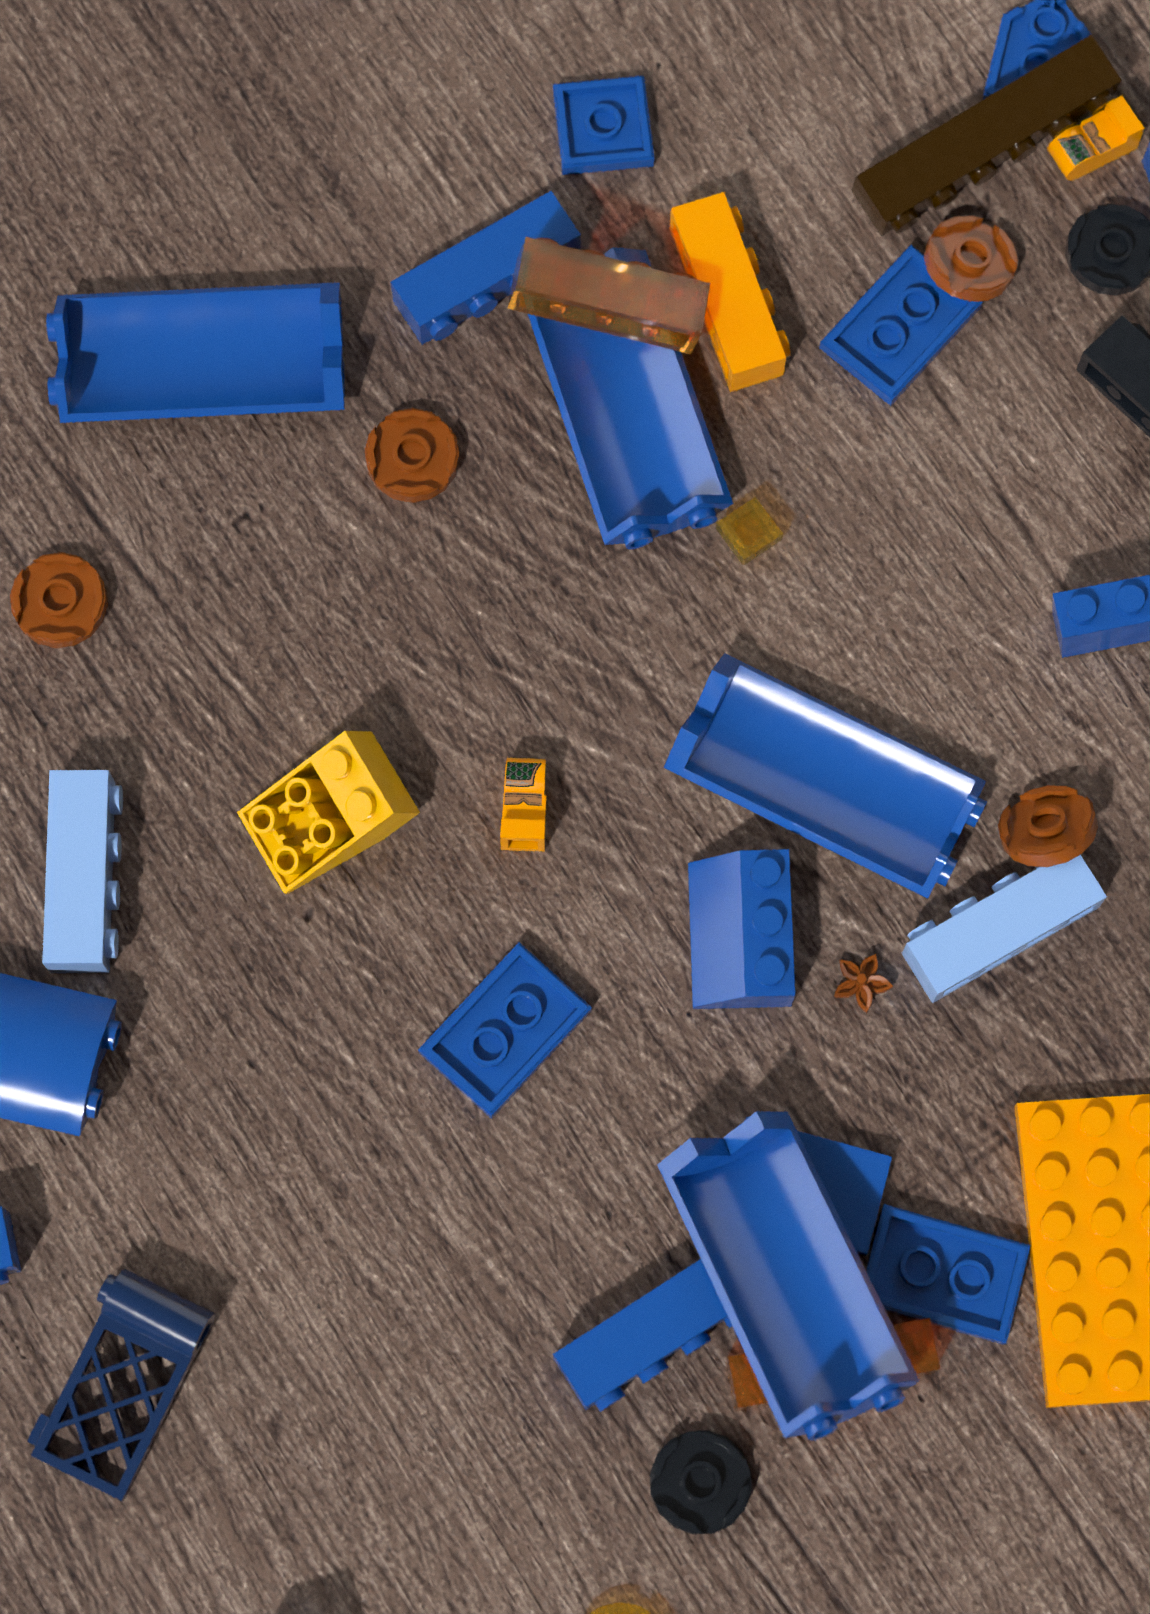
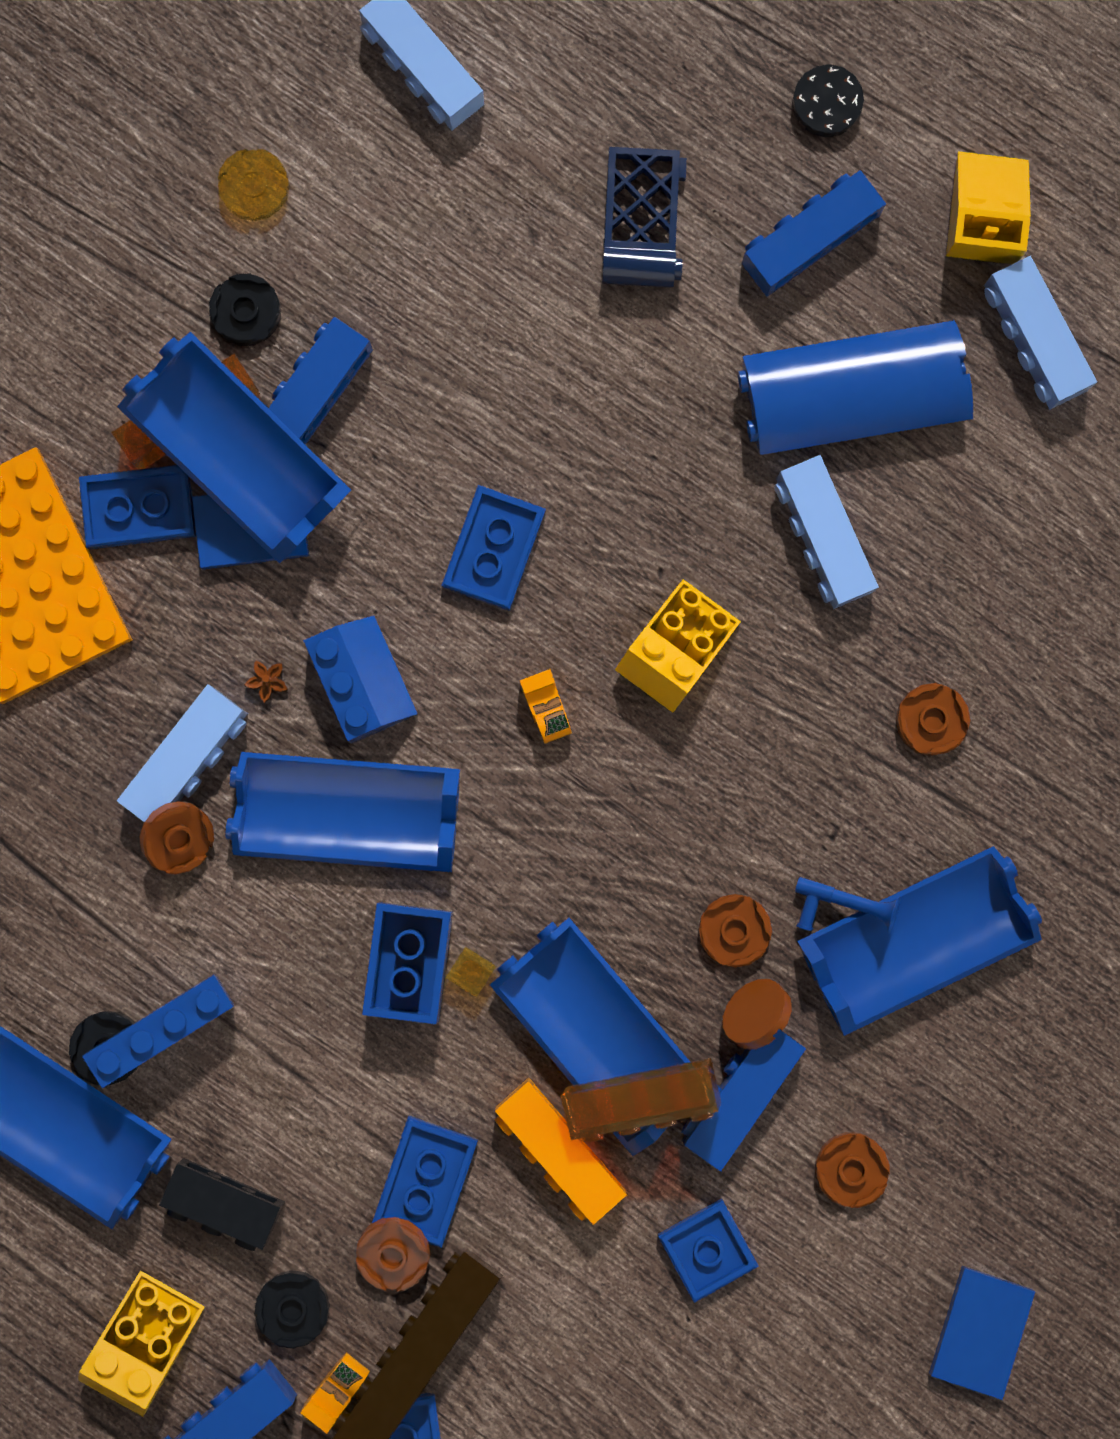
camera: 155 degrees right, 10 degrees up
(294, 457) = (817, 891): none -> blue piece
(397, 144) = (852, 1170): none -> dark orange tile
(430, 344) = (756, 1013): none -> dark orange tile
(820, 565) = (407, 963): none -> blue brick

